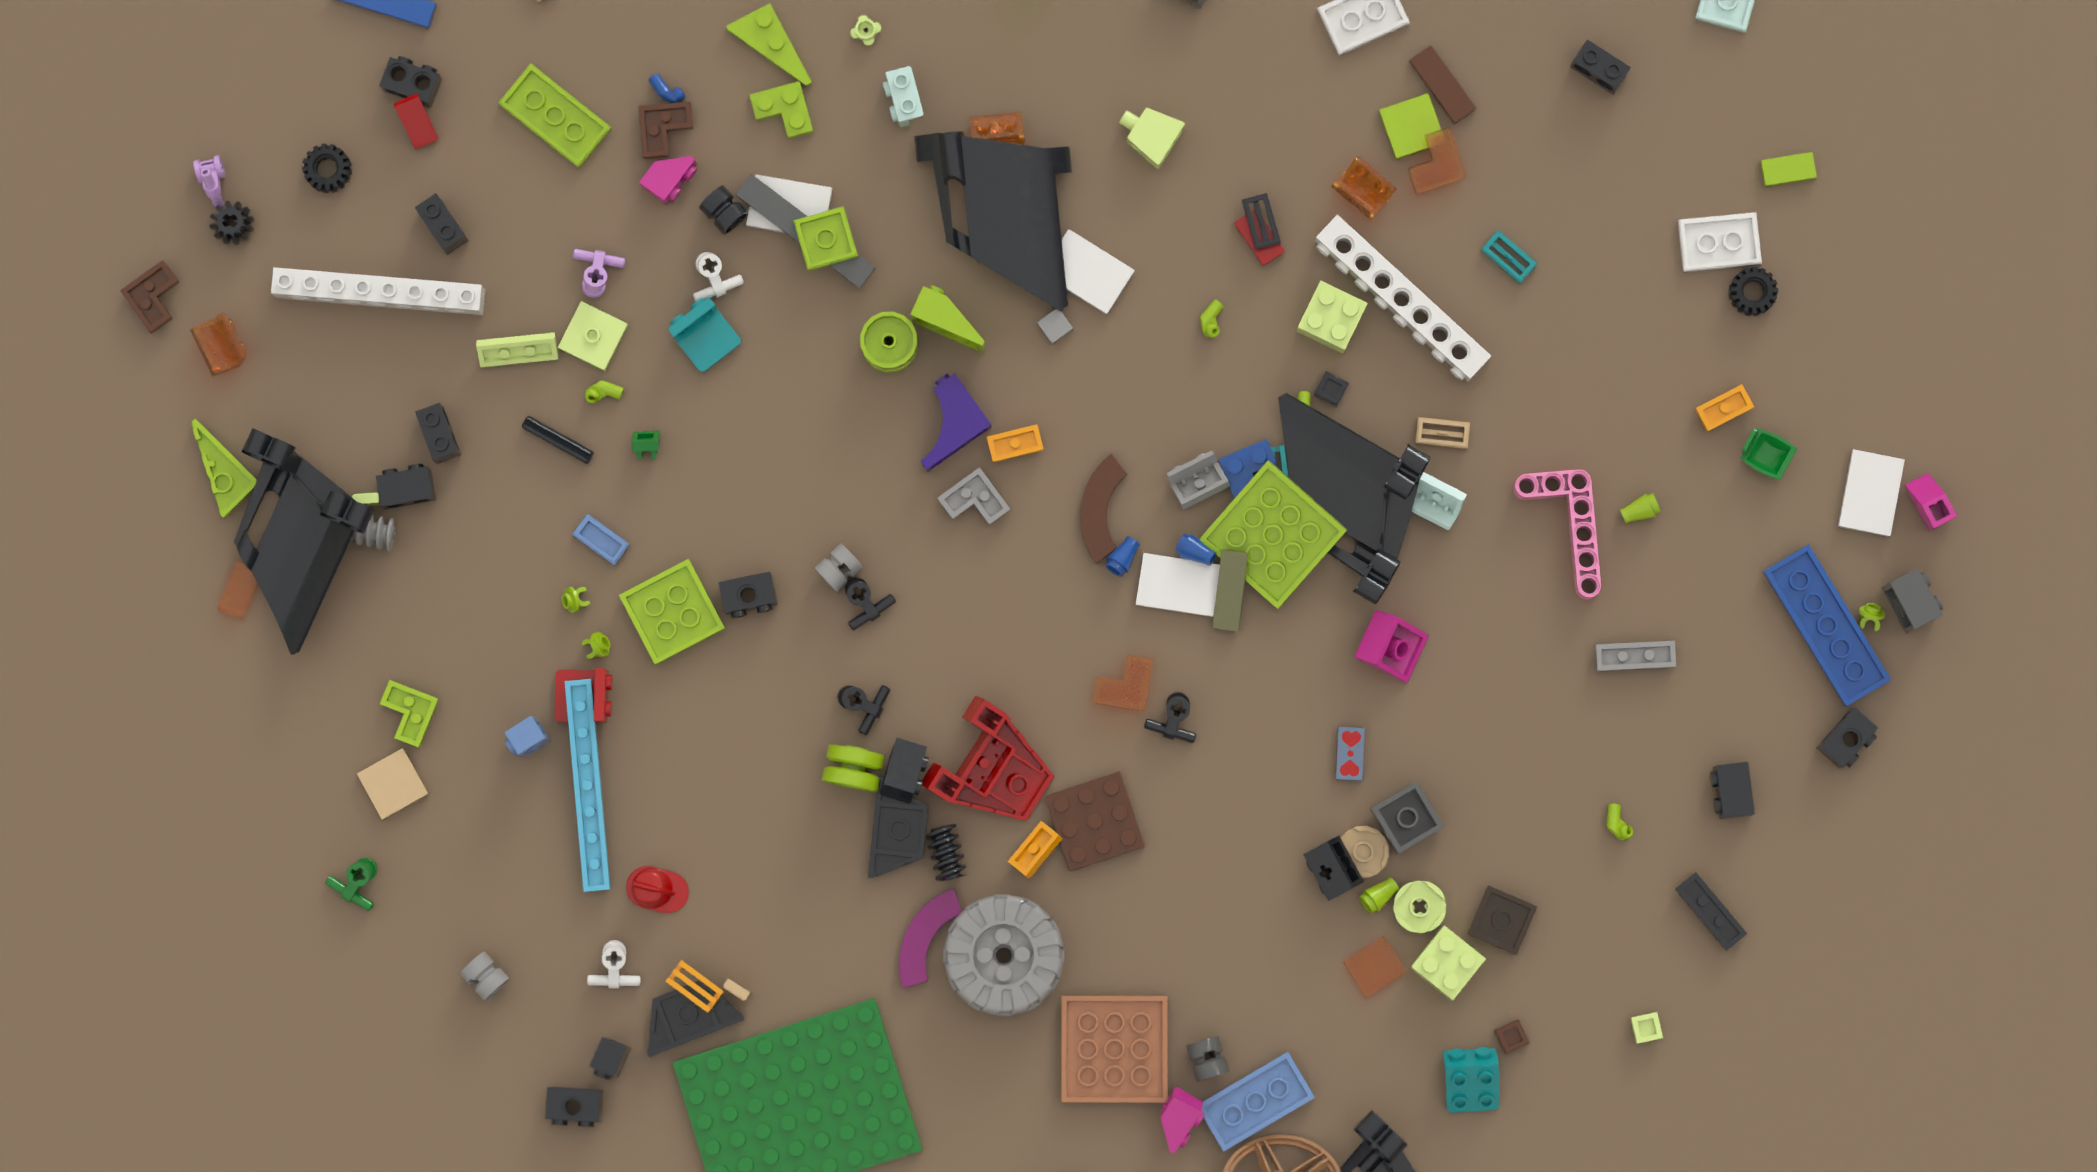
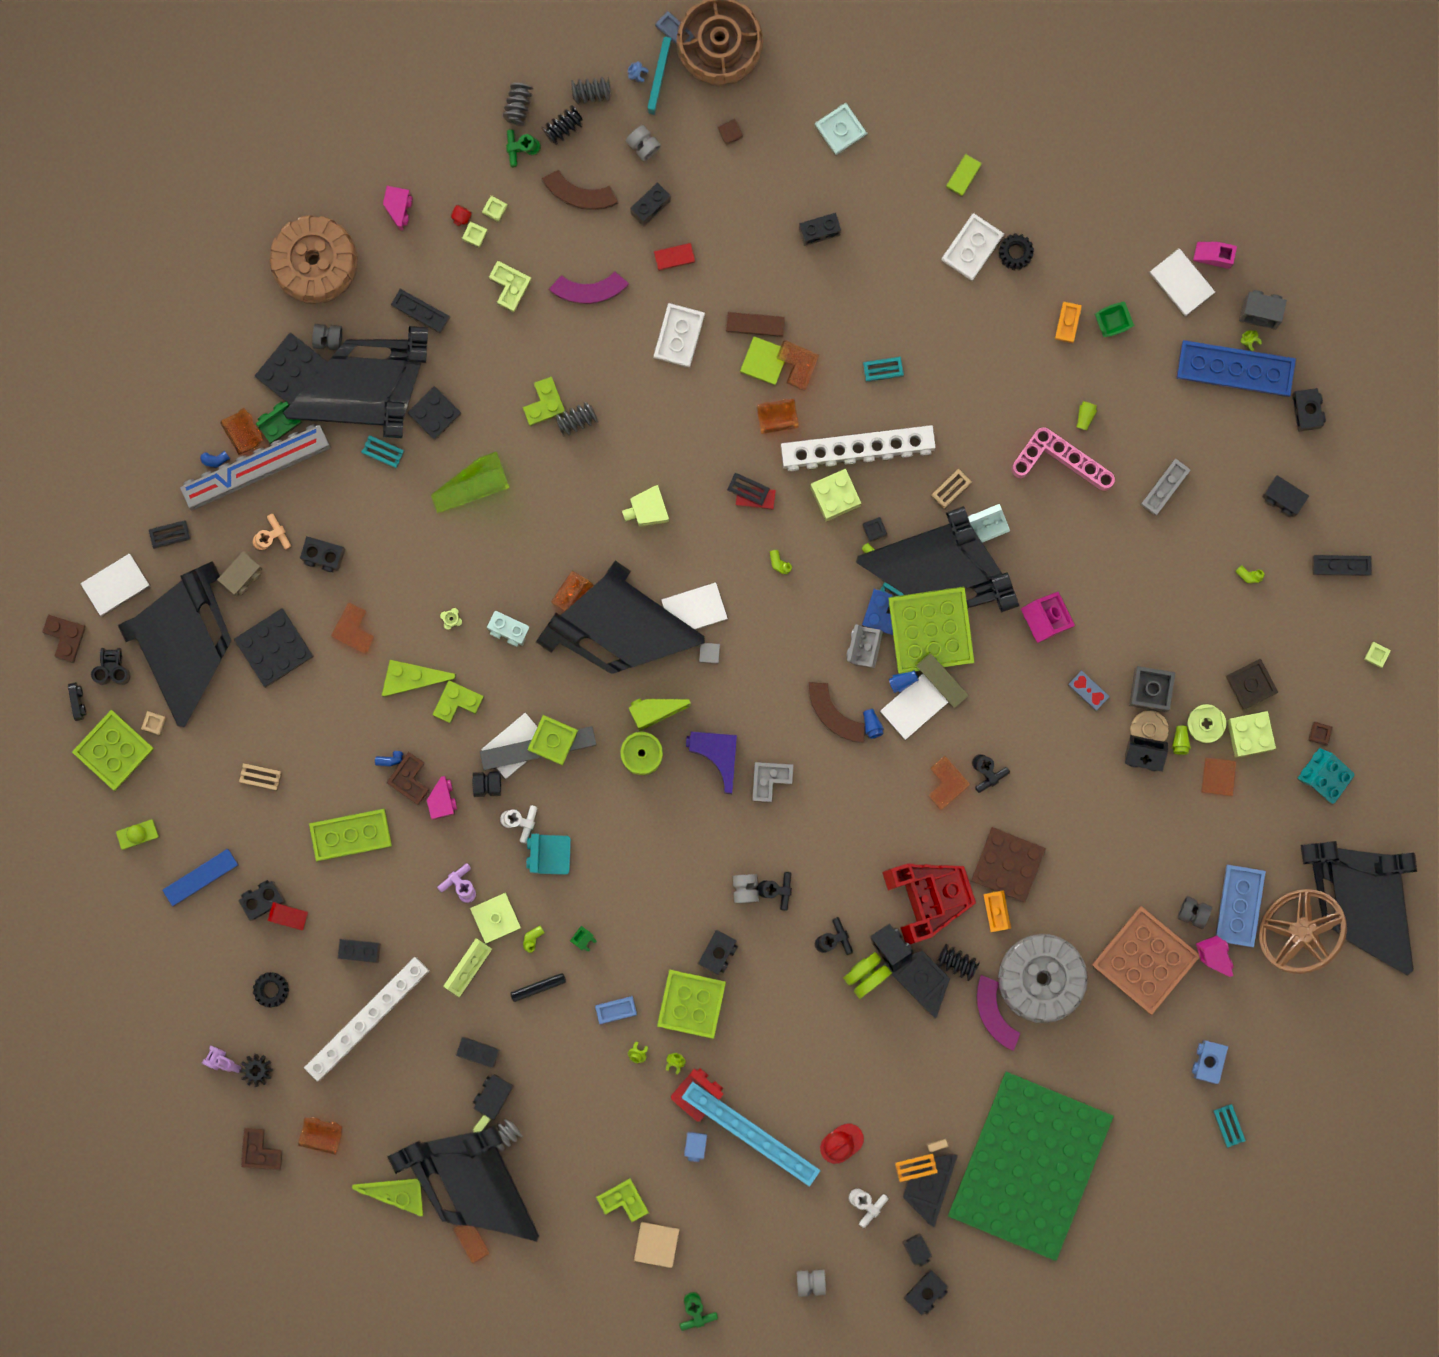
camera: 55 degrees left, 0 degrees up
(1015, 443) = (757, 731): light orange plate -> none

